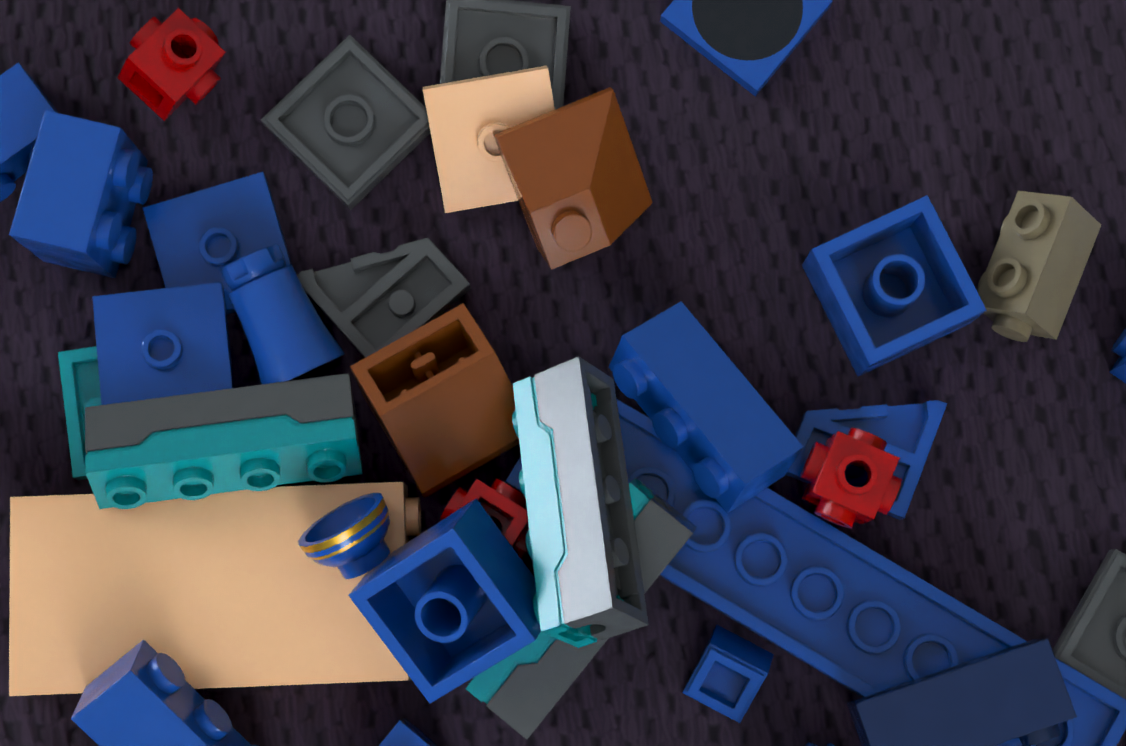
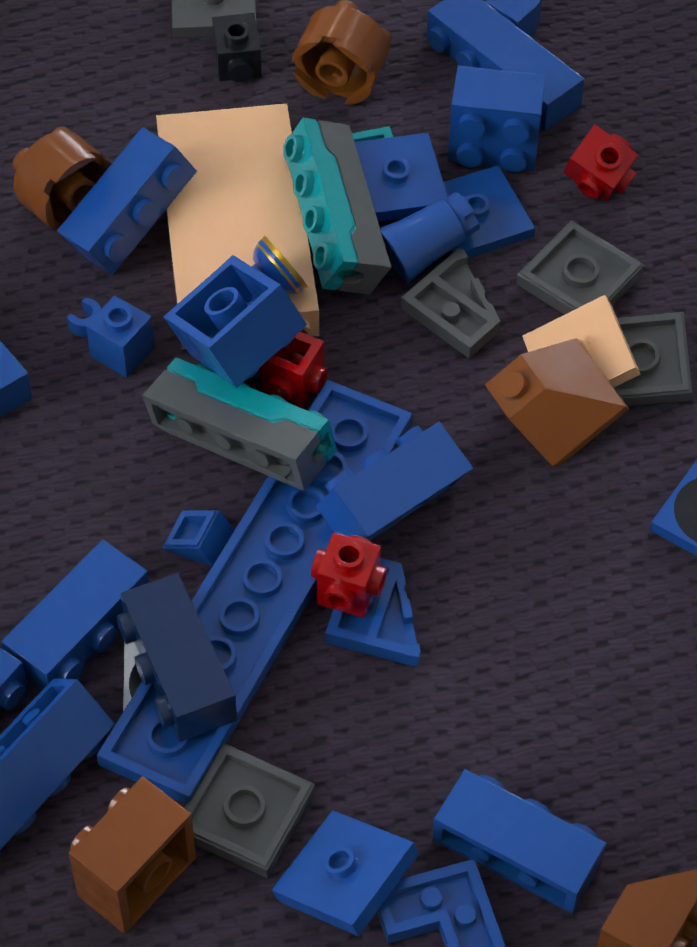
camera: 85 degrees right, 25 degrees down
(440, 399) = (382, 331): dark orange slope -> none
(578, 505) = (310, 384): piece -> none
(893, 285) = (505, 608): blue brick -> none
(1037, 265) = (537, 711): dark tan brick -> none

